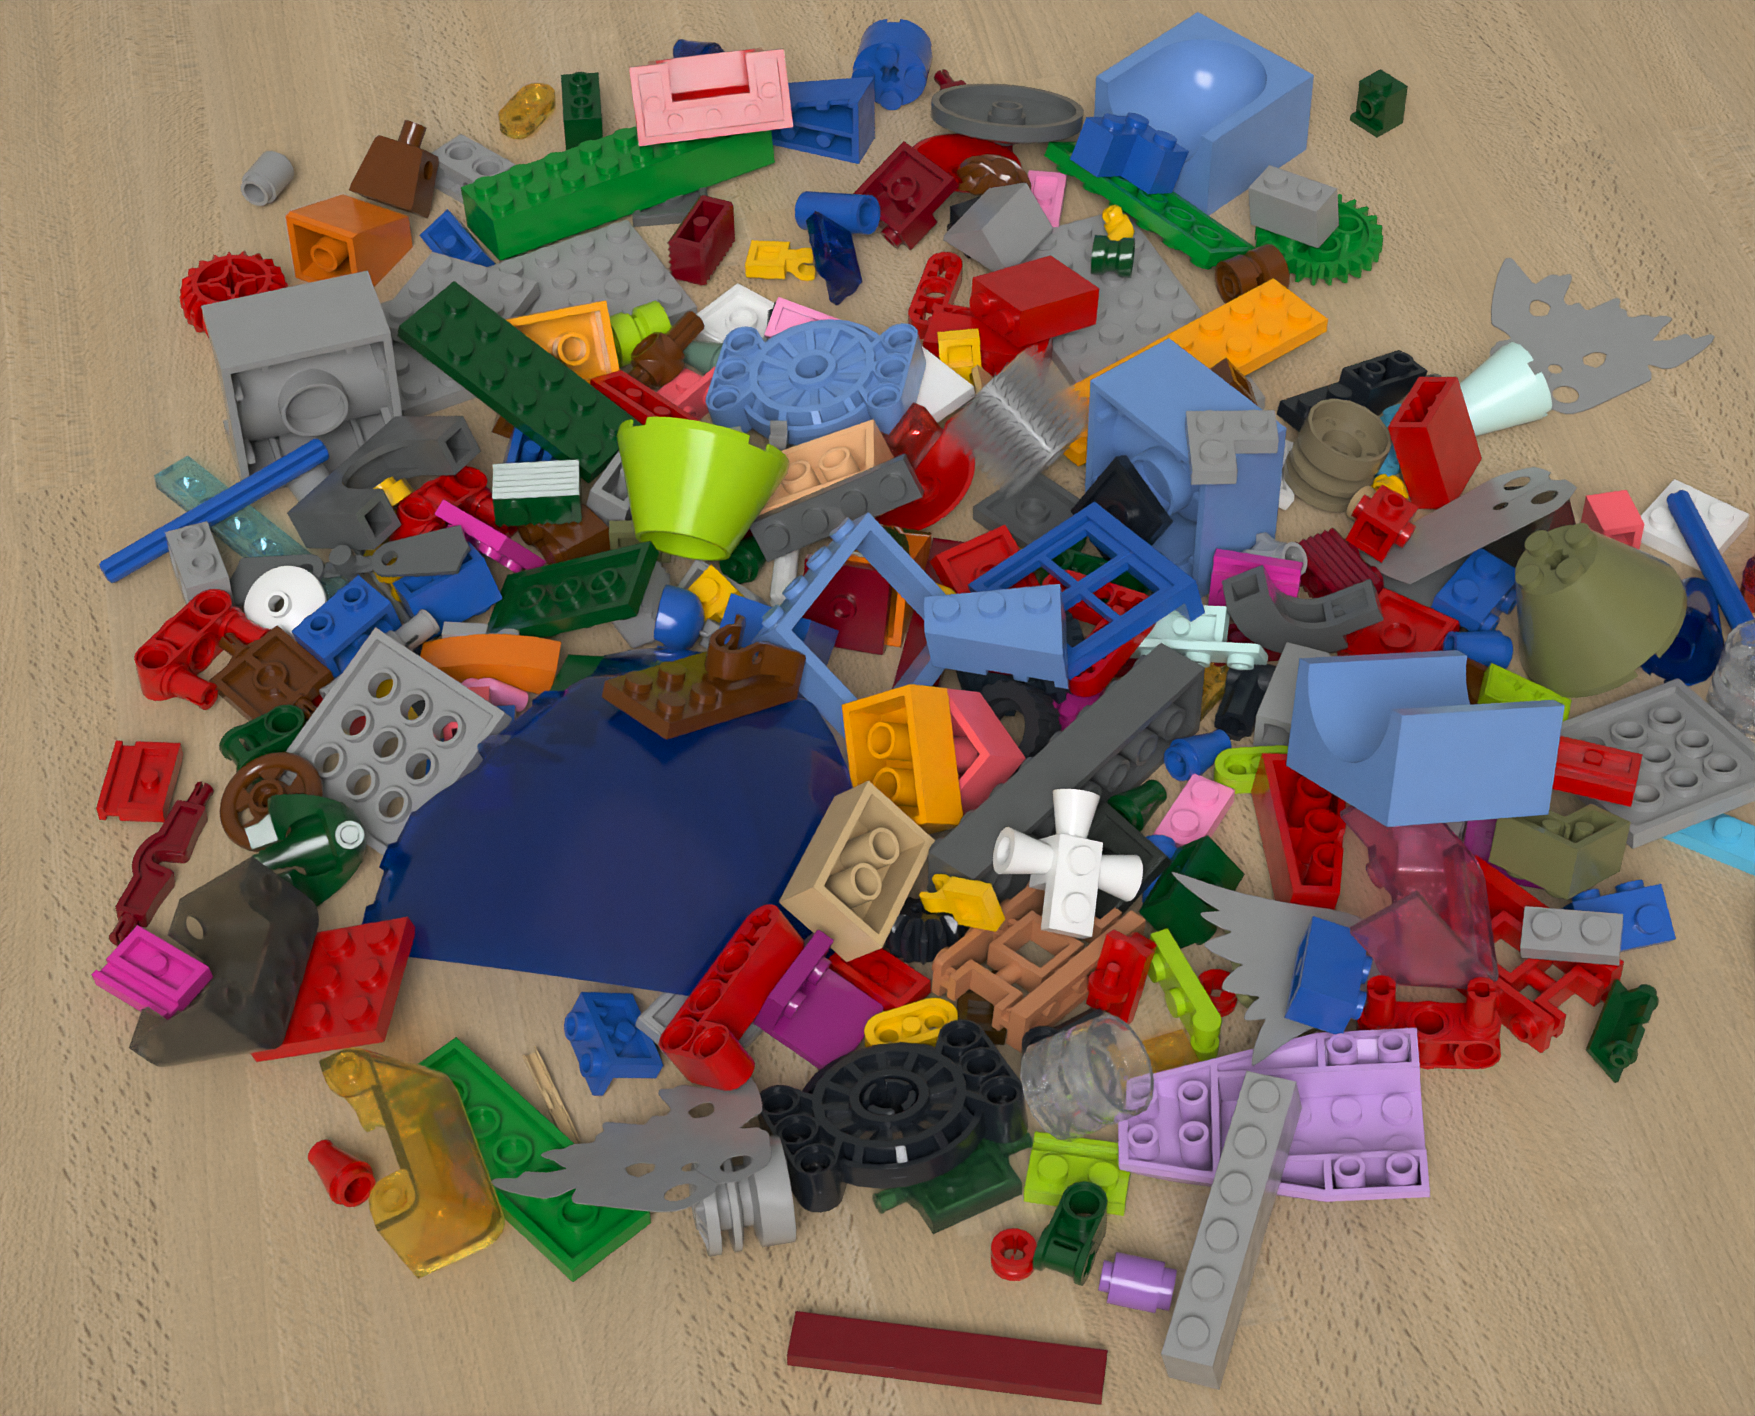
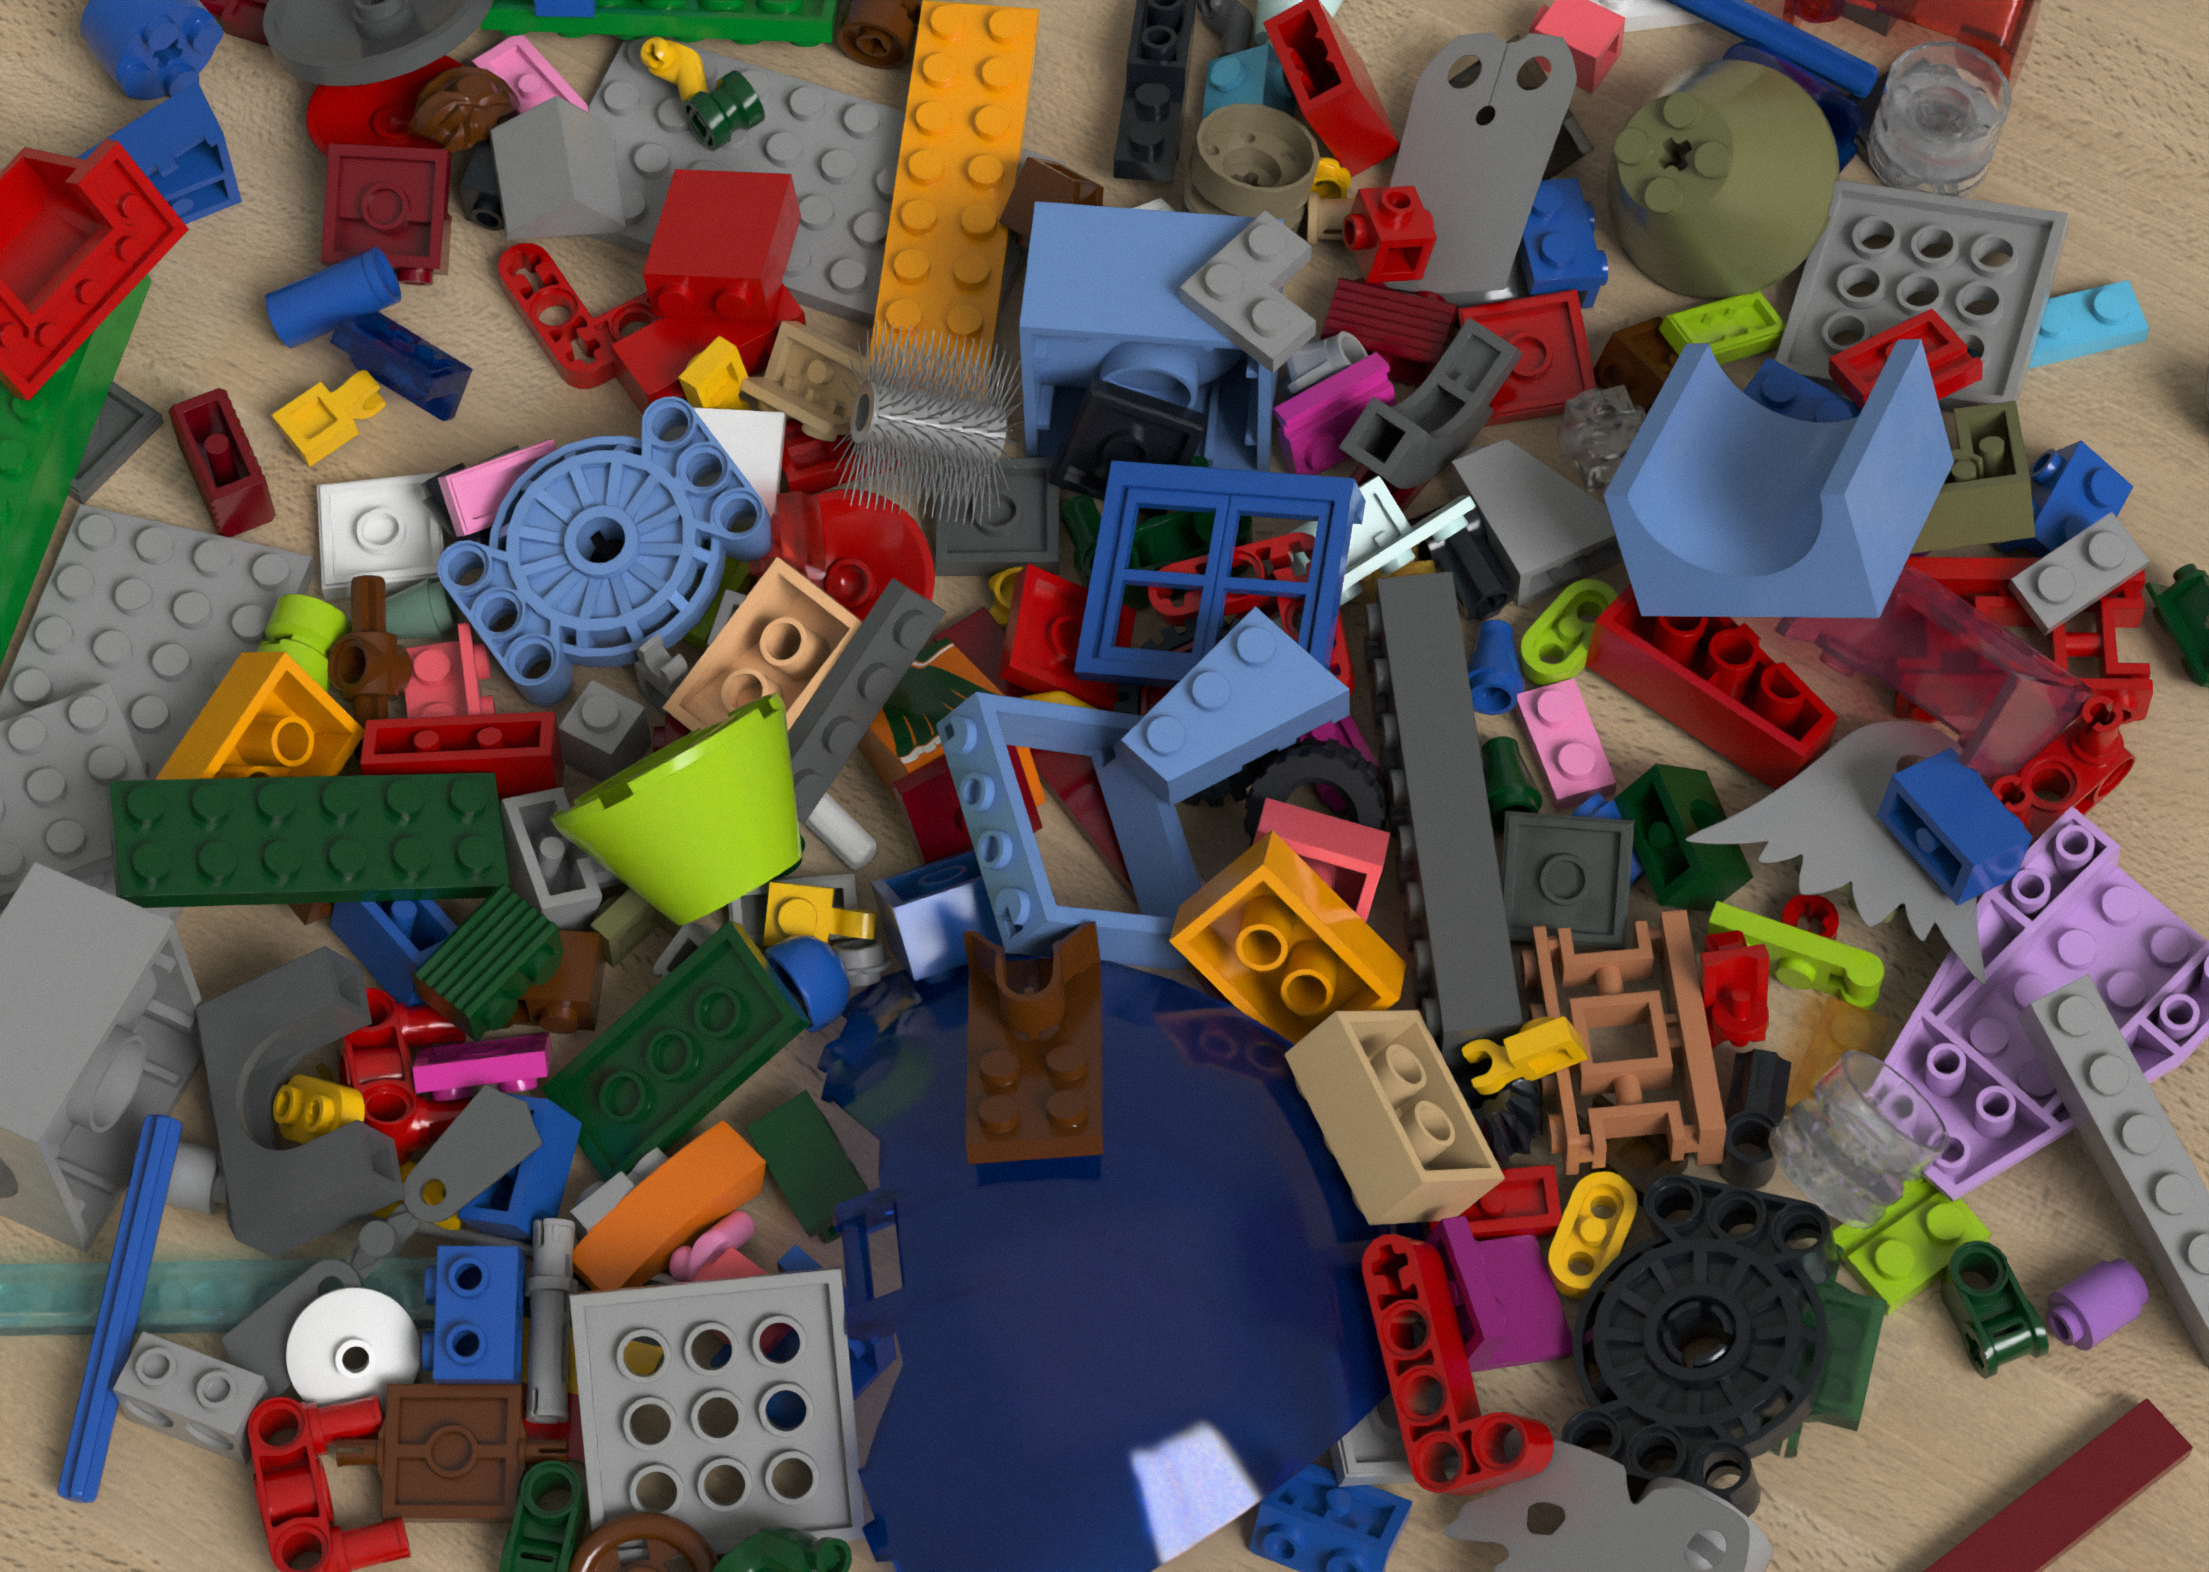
camera: 45 degrees left, 15 degrees up
(1009, 1268) = (1969, 1372): red bush -> none
(1068, 865) = (1583, 921): white brick -> none
(1481, 646) = (1625, 300): blue cone -> none

